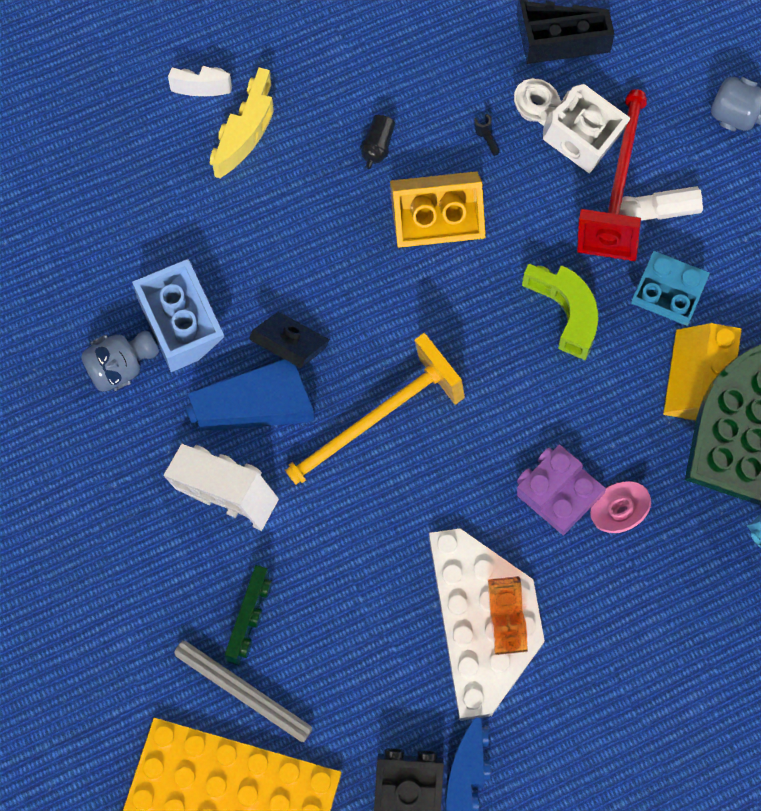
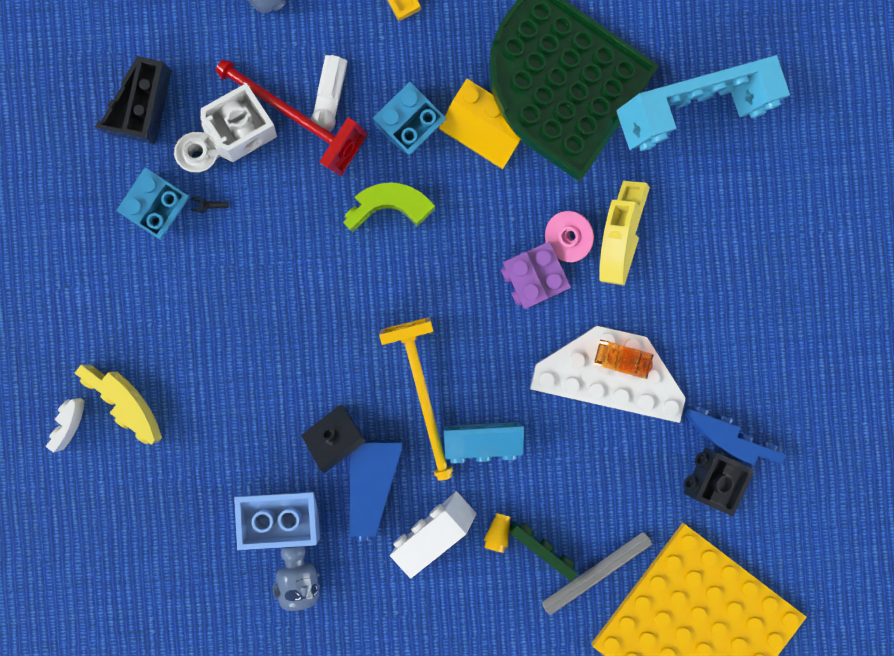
camera: 70 degrees left, 20 degrees up
(243, 558) = (498, 533): none -> yellow cone
(349, 497) = (483, 441): none -> dark azure slope
(377, 140) = (179, 297): black piece -> none
(438, 209) = (261, 273): yellow slope -> none
(465, 77) = (153, 203): none -> dark azure slope
(644, 560) = (620, 232): none -> light yellow slope

